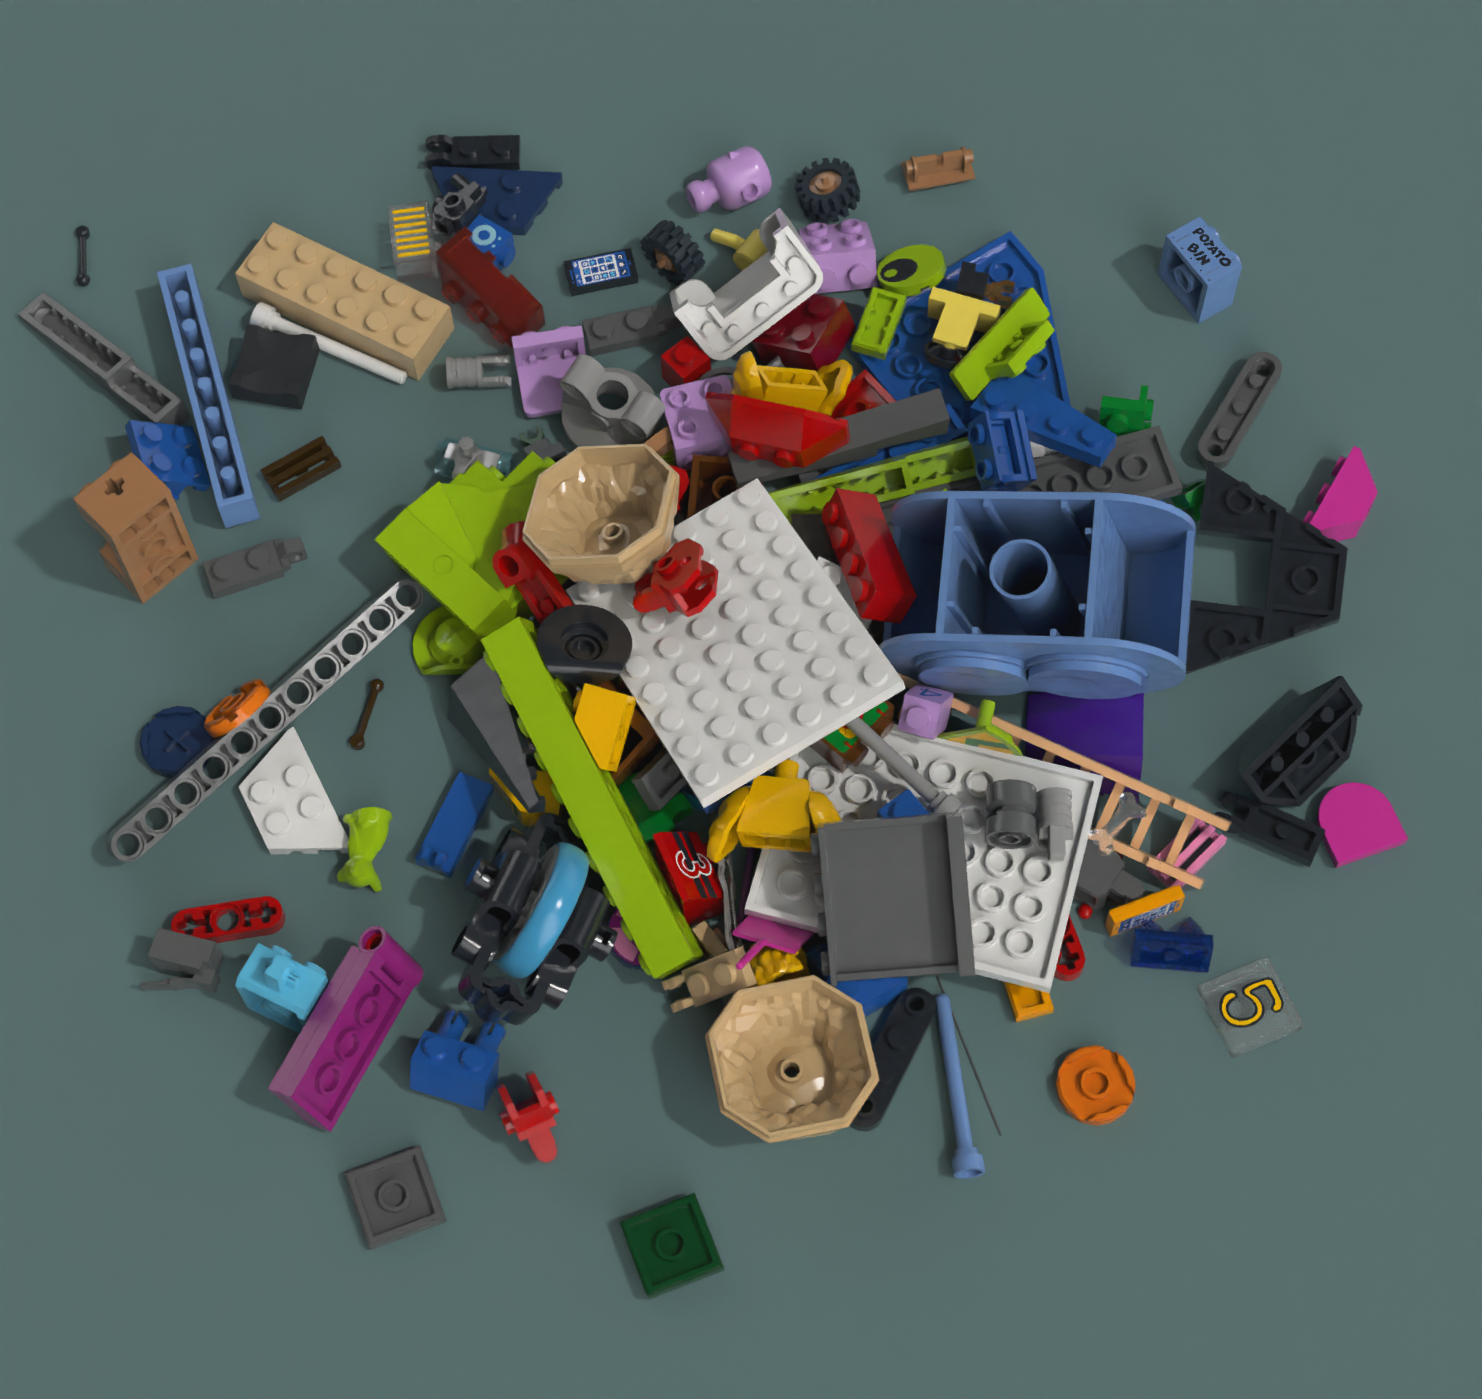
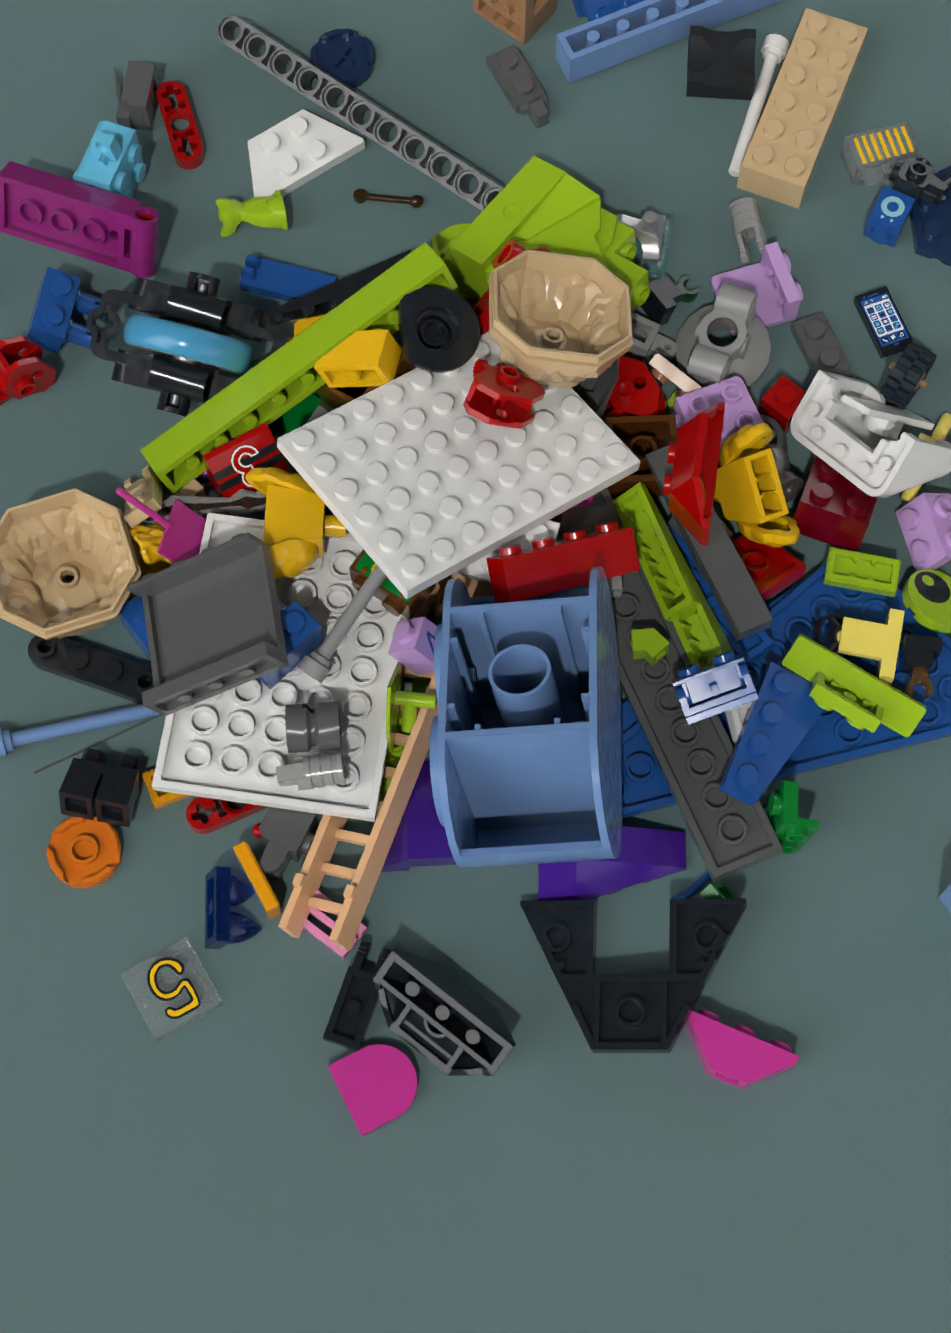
camera: 80 degrees right, 5 degrees up
(237, 708) = (369, 89): orange tile -> none
(298, 463) = (628, 102): dark brown tile -> none
(485, 292) = (834, 221): clear red wedge -> none
(720, 274) = (886, 419): none -> white piece
(1036, 1053) = (100, 788): none -> black hips
(1127, 810) = (316, 828): clear piece -> none
(1239, 409) = (833, 941): dark grey plate -> none

